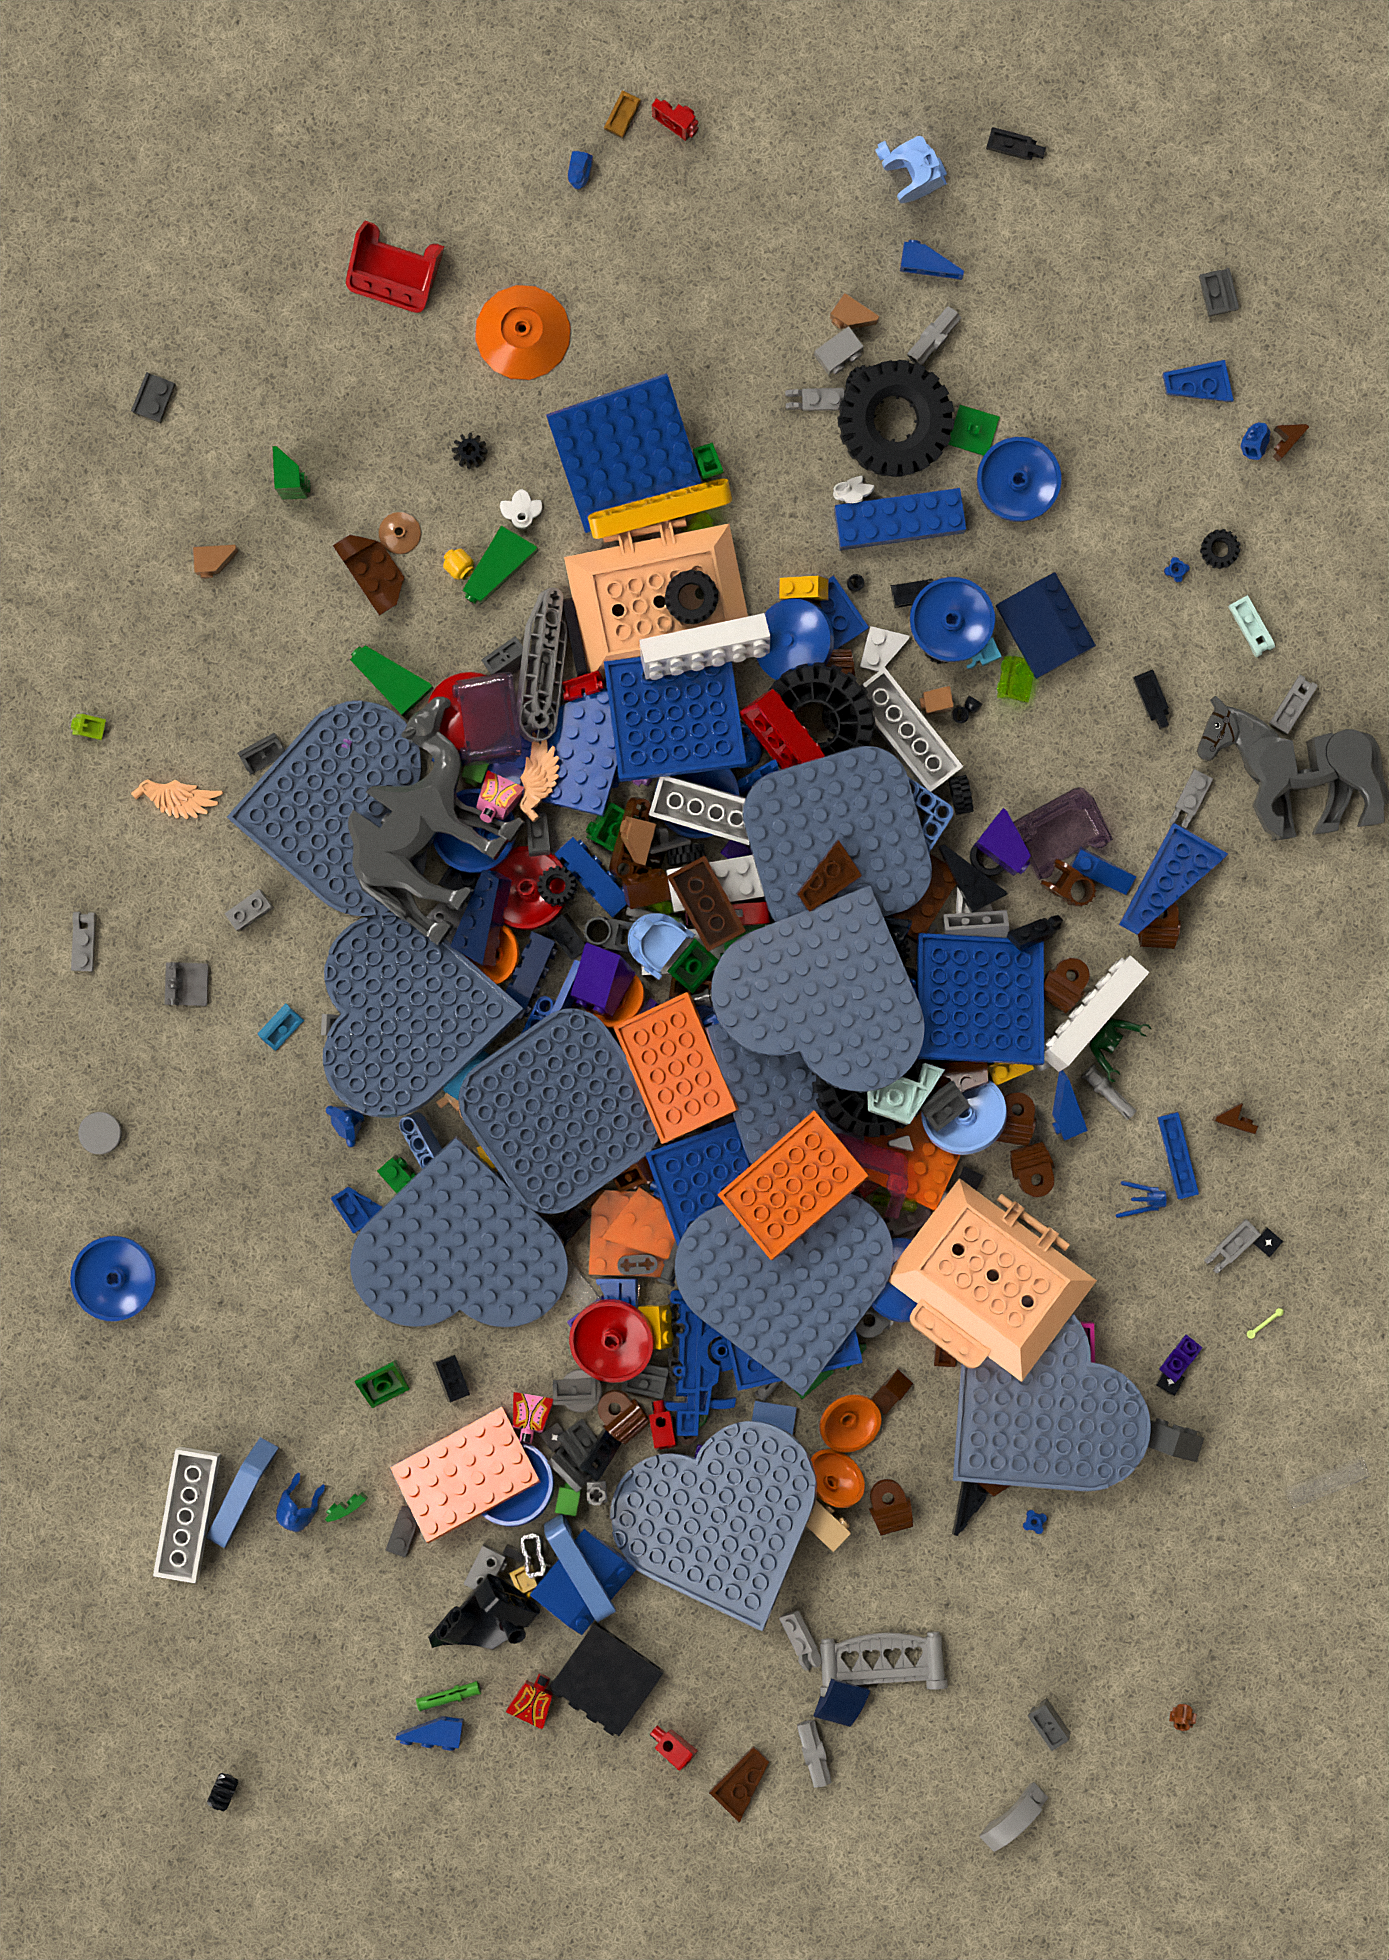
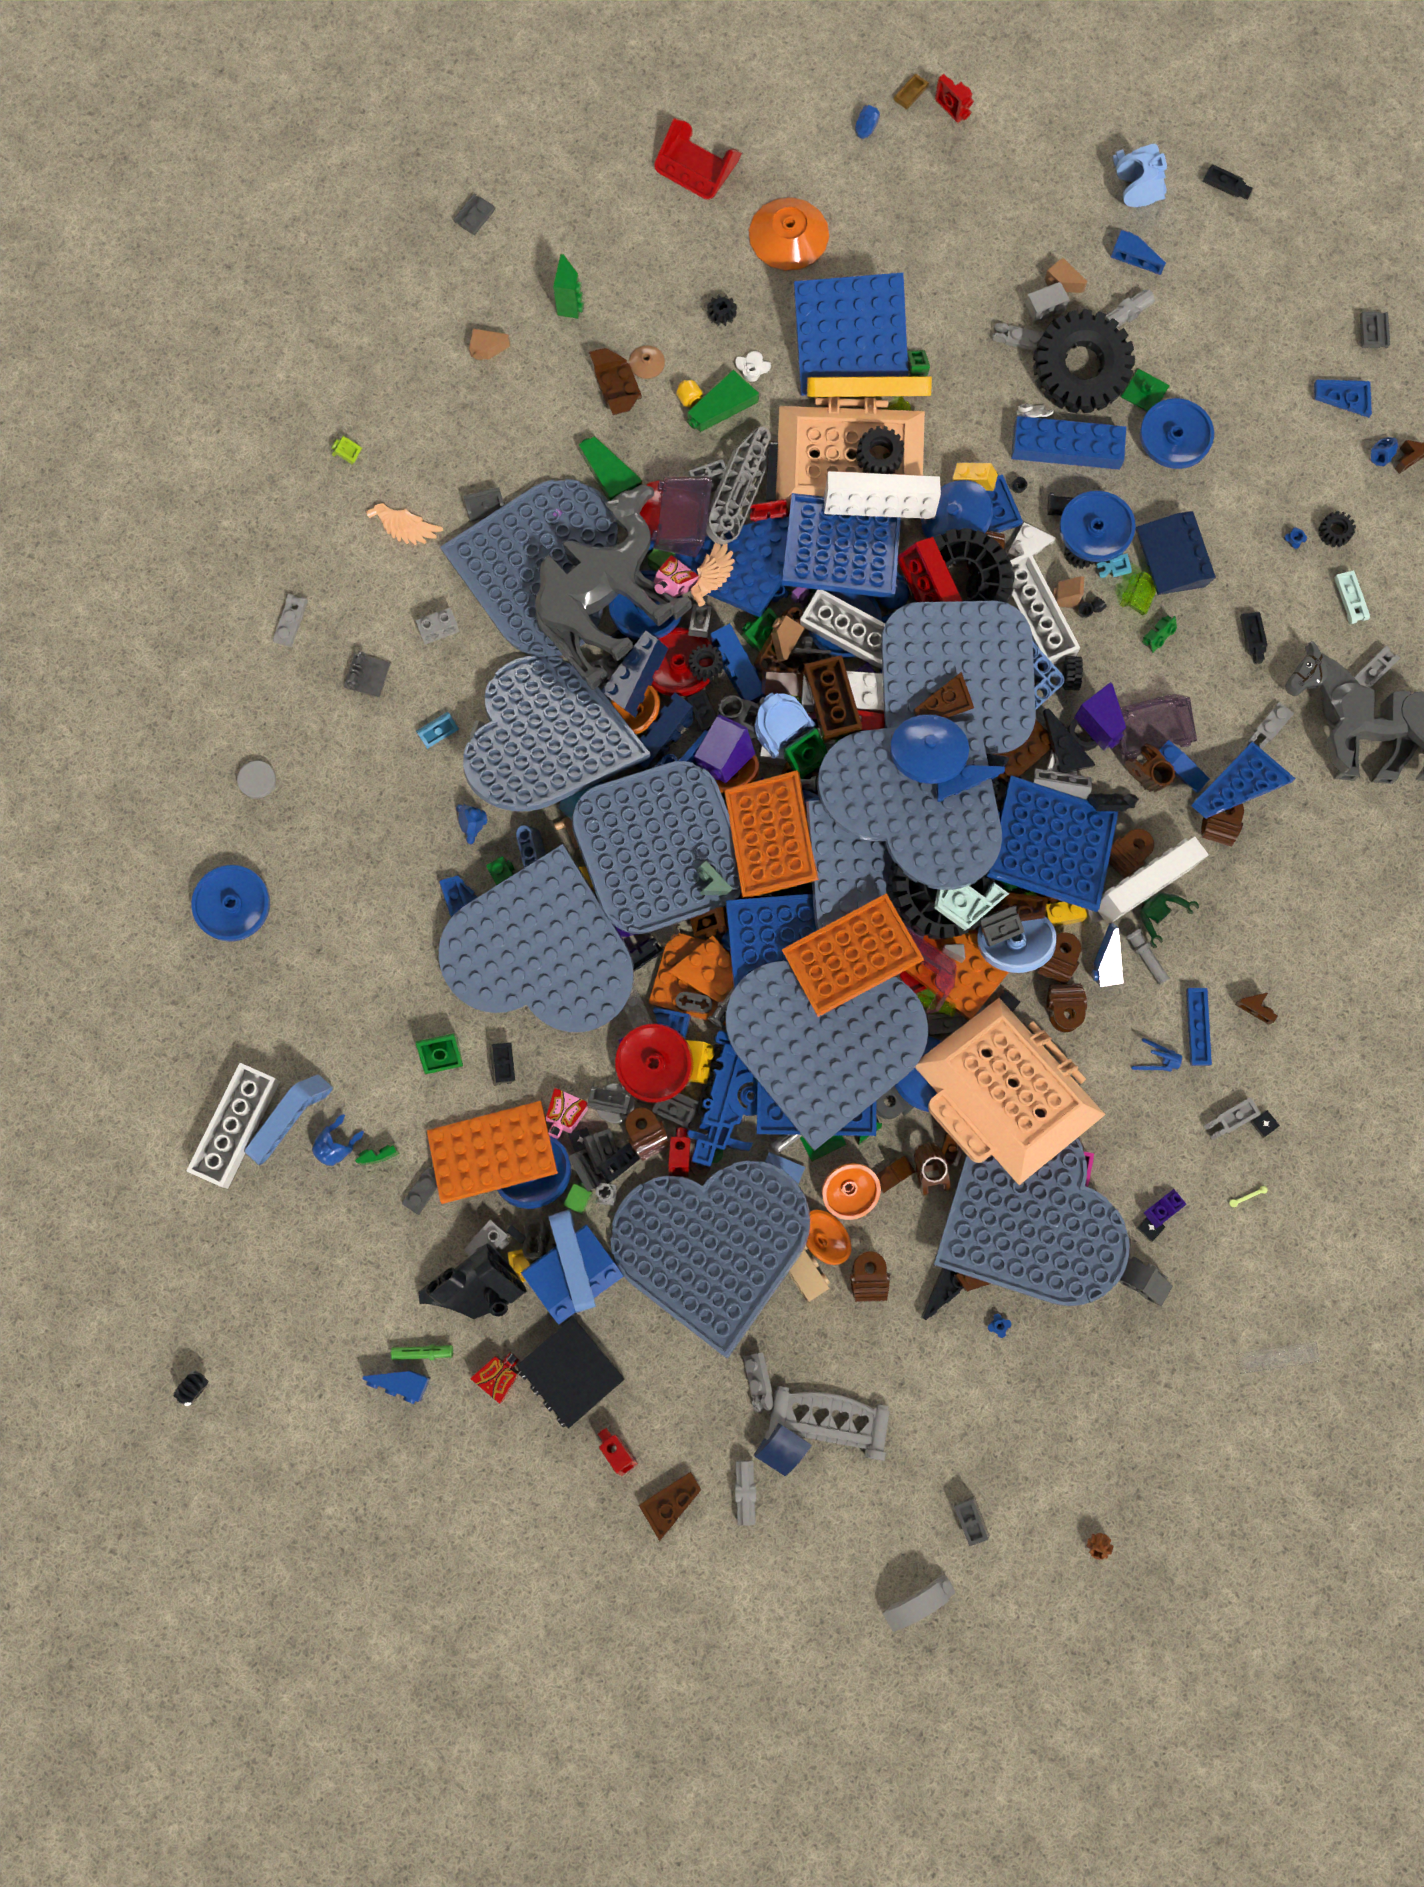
camera: 15 degrees right, 10 degrees down
(630, 1138) = (717, 884): none -> sand green slope
(824, 940) = (929, 749): none -> blue dish
(861, 963) = (968, 778): none -> blue wing
(923, 1367) = (924, 1154): none -> reddish brown piece
(1054, 712) = (1166, 627): none -> green hinge

